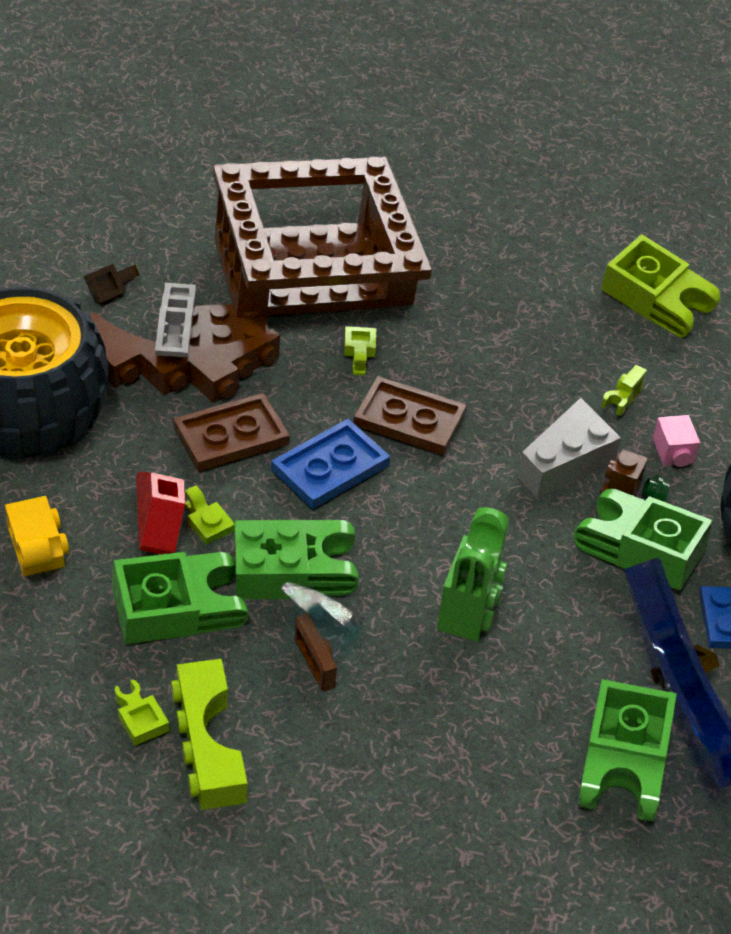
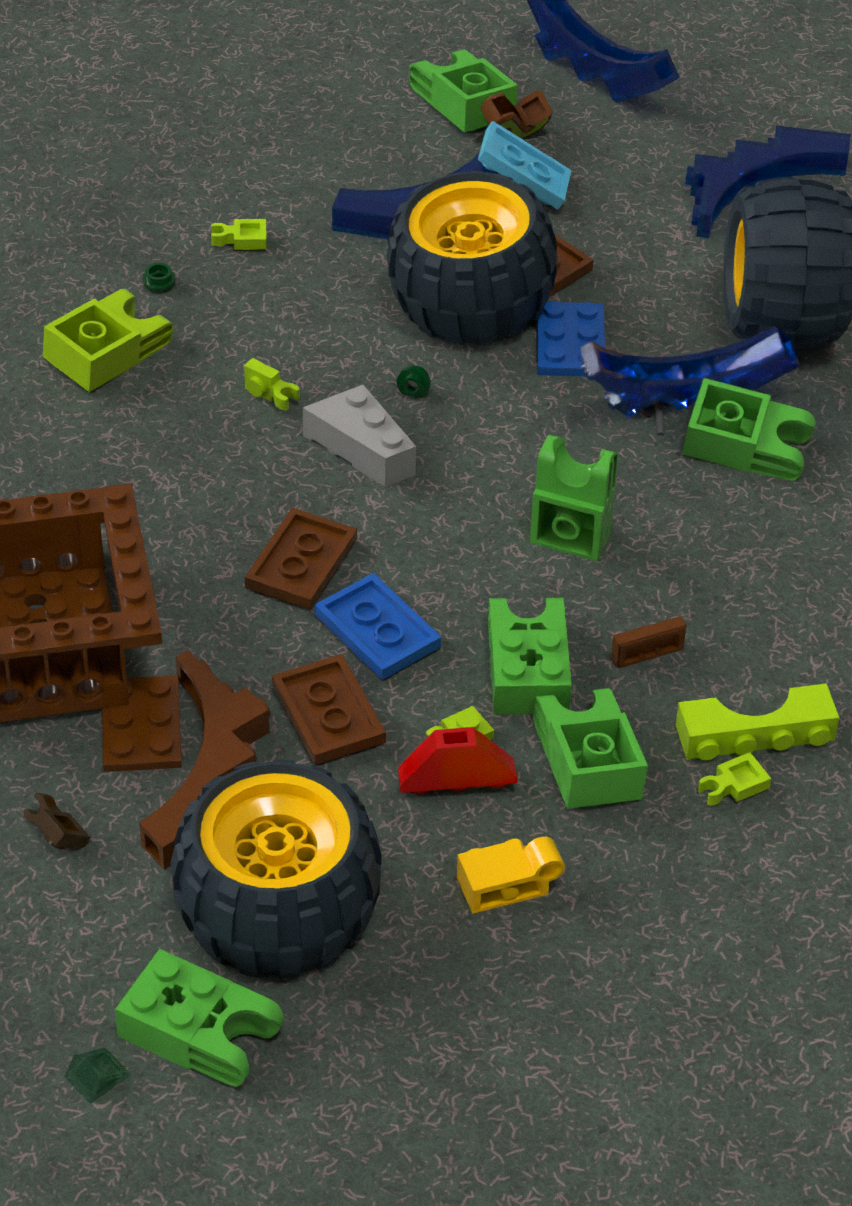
camera: 85 degrees left, 0 degrees up
(175, 320) = (173, 741): light grey slope -> none
(320, 605) = (606, 623): clear light blue slope -> none
(360, 344) = (184, 592): lime plate -> none
(625, 473) = (401, 396): reddish brown brick -> none
(643, 530) = (487, 388): bright green brick -> none
(676, 440) = (345, 357): bright pink brick -> none

